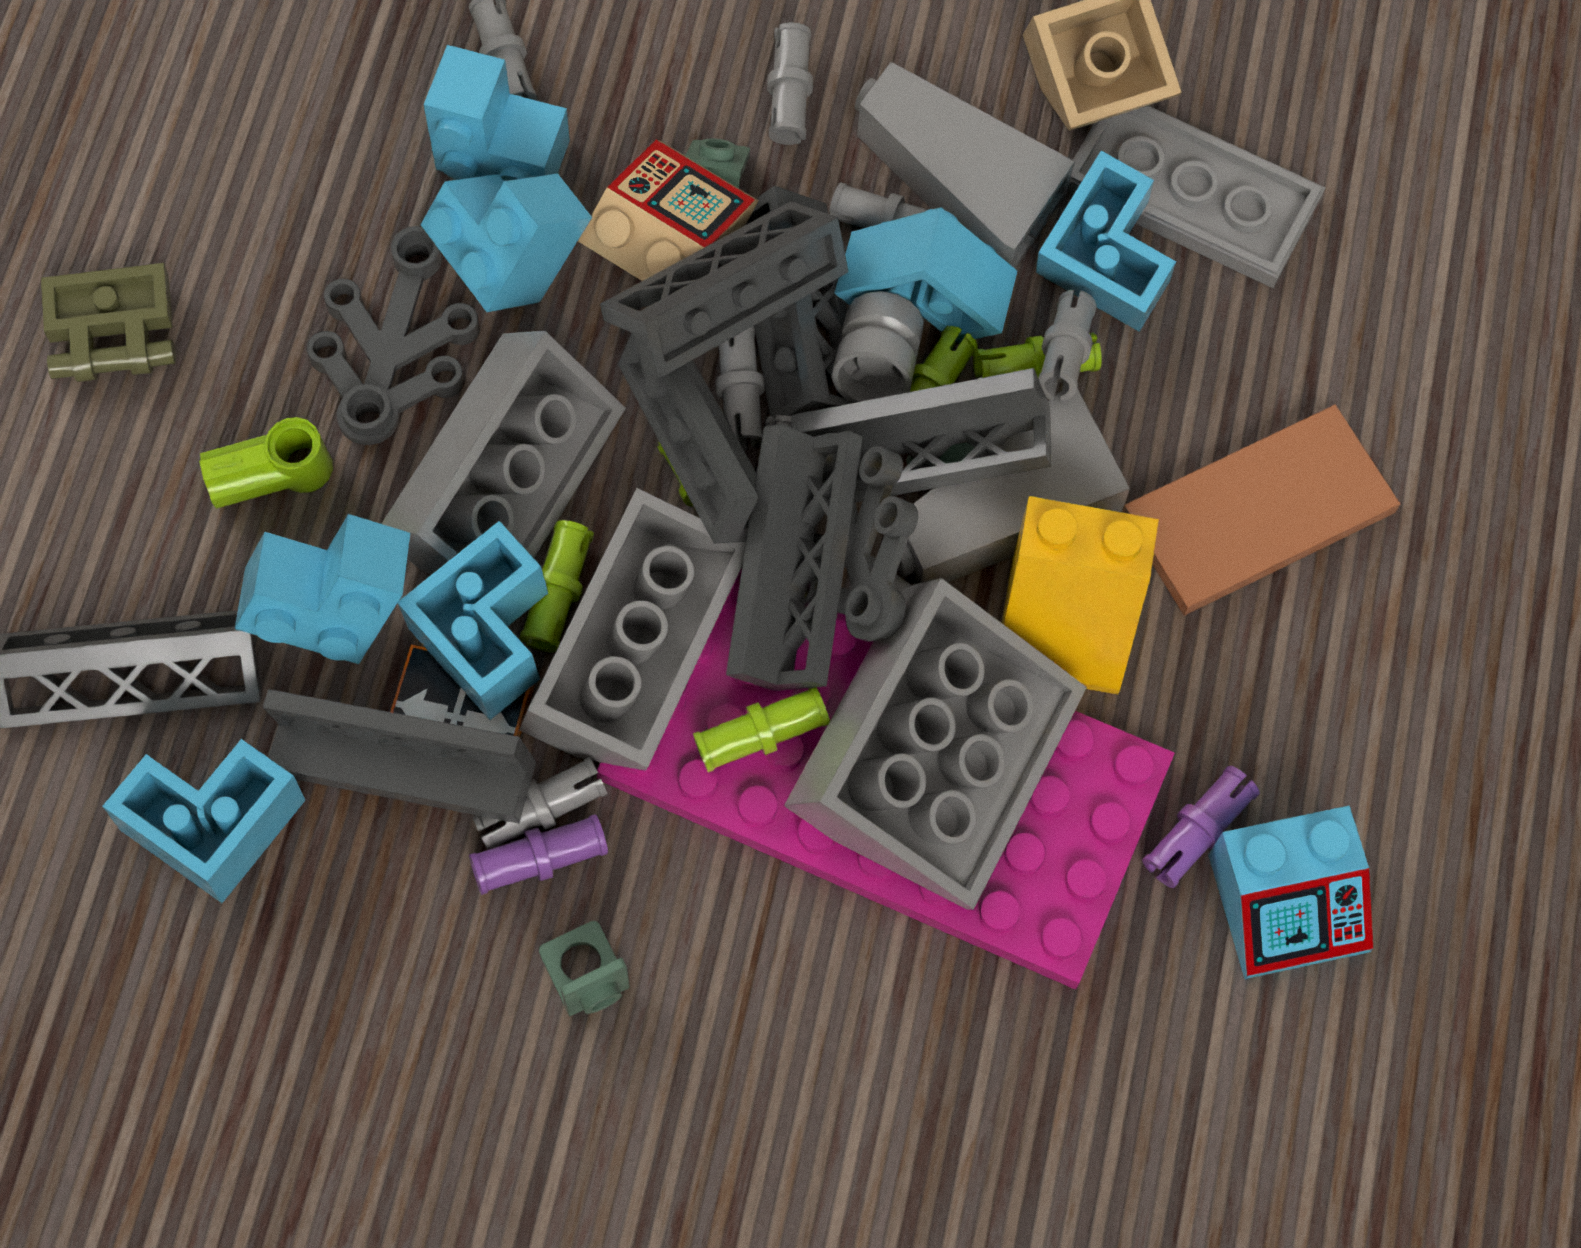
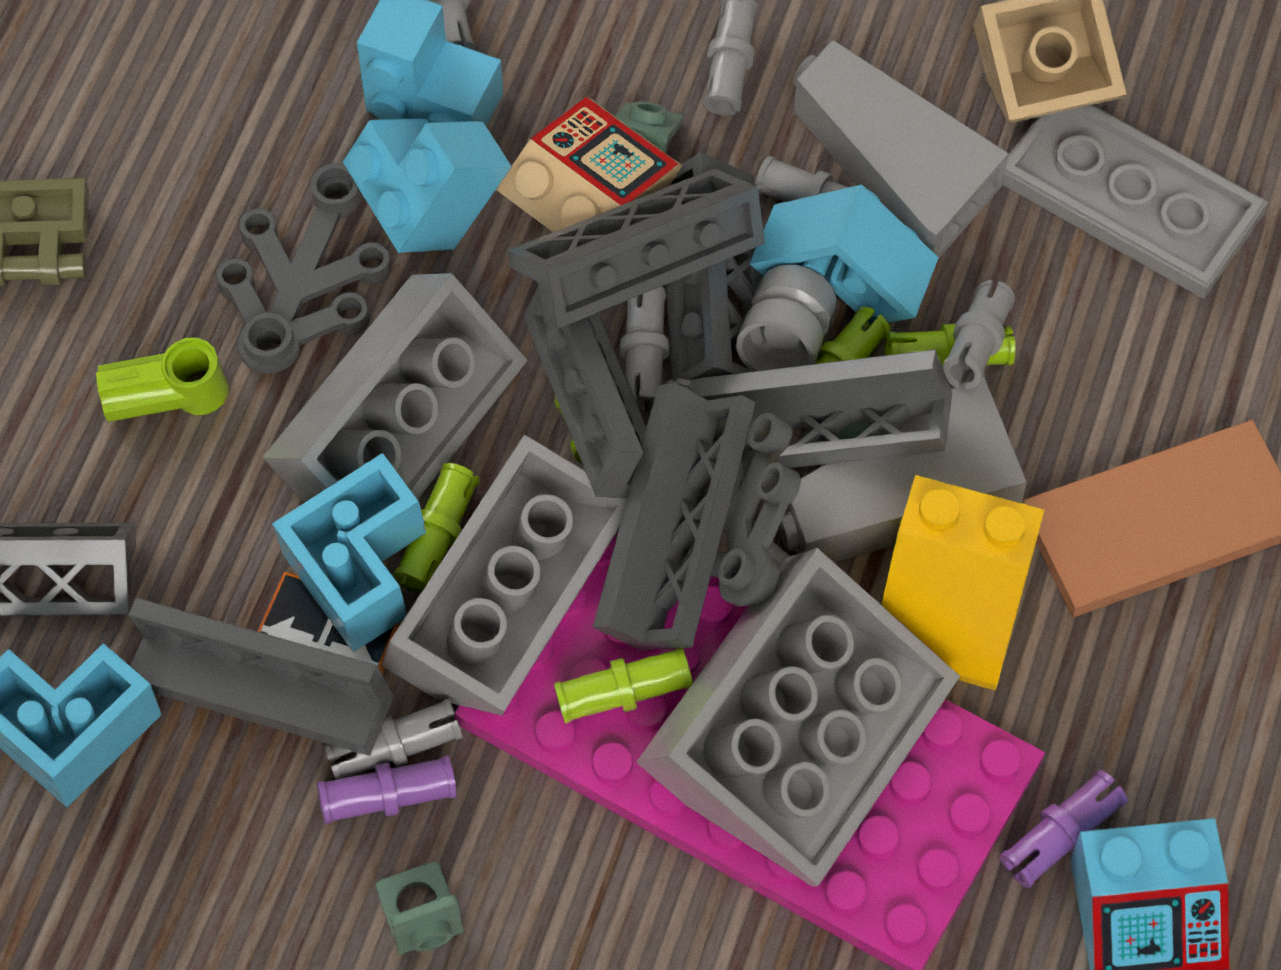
camera: 10 degrees right, 5 degrees down
(323, 597) = (204, 514): medium azure brick -> none
(1094, 249) = (1020, 242): medium azure brick -> none

